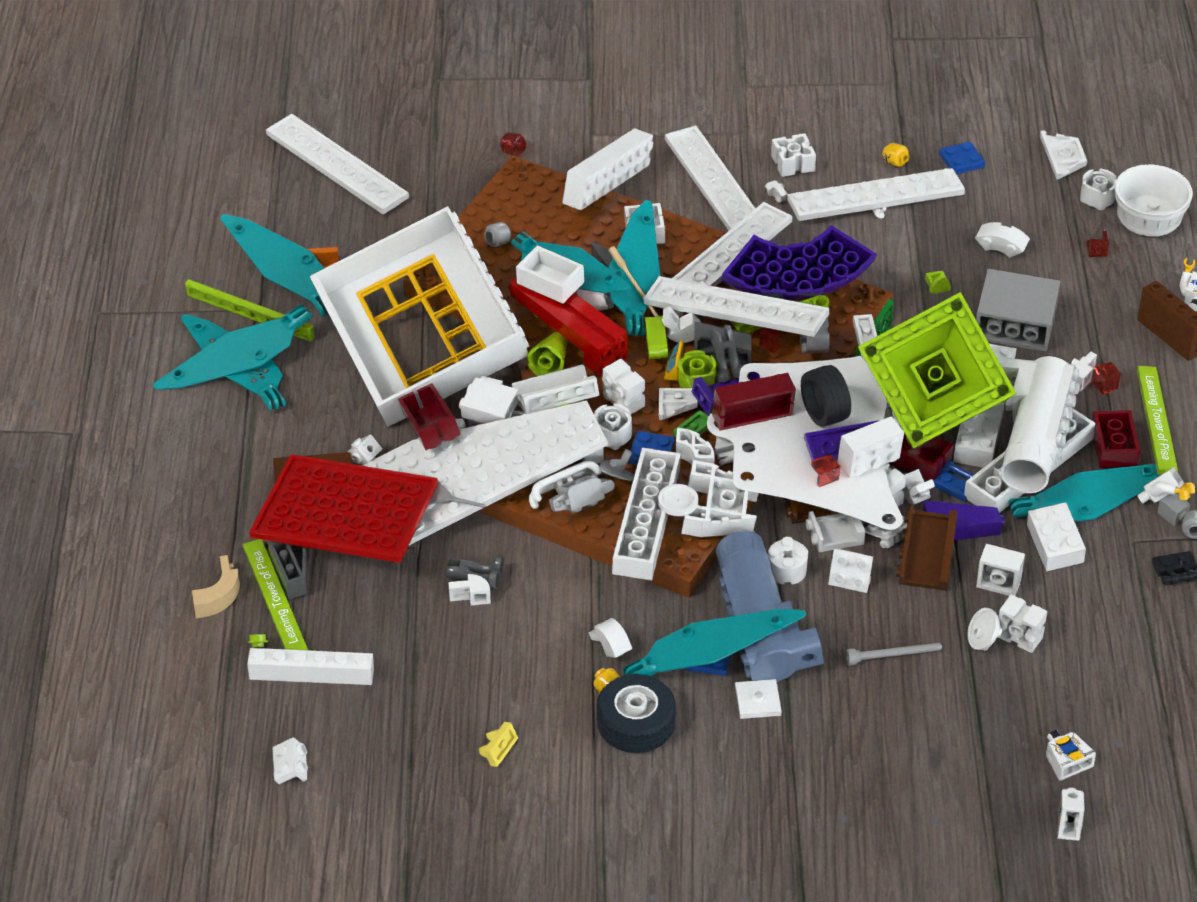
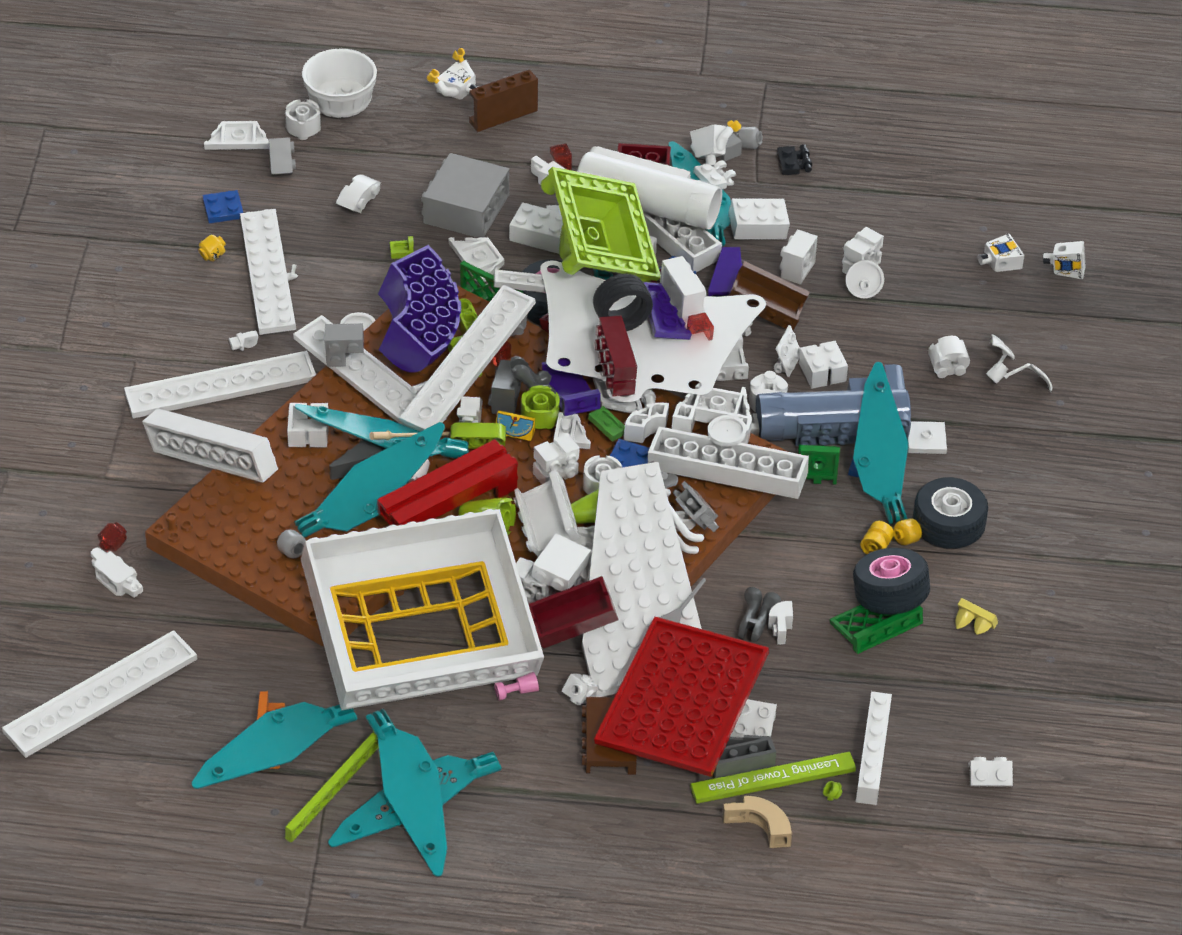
camera: 85 degrees left, 0 degrees up
(341, 577) = (755, 719): none -> white hinge
(371, 417) = (524, 684): none -> bright pink piece
(471, 151) = (115, 574): none -> white hinge
(472, 672) = (879, 632): none -> green fence
(521, 662) = (891, 581): none -> black wheel
(550, 274) = (411, 480): white piece -> none
(588, 656) = (877, 537): none -> yellow wheel
(611, 637) = (853, 520): white brick -> none
(685, 602) = (829, 462): none -> green bracket
(737, 219) = (341, 340): none -> light grey brick
(793, 155) = (197, 318): white brick -> none
(843, 603) = (818, 360): none -> white piece
(854, 656) = (877, 340): light grey piece -> none
(868, 730) = (999, 370): none -> white plant
(874, 705) = (949, 356): none -> white brick
(1037, 175) = (280, 156): none -> light grey brick
(1098, 247) = (376, 134): clear red panel -> none
(1116, 497) = (714, 174): none -> white plate
(1156, 419) = (612, 138): lime tile -> none

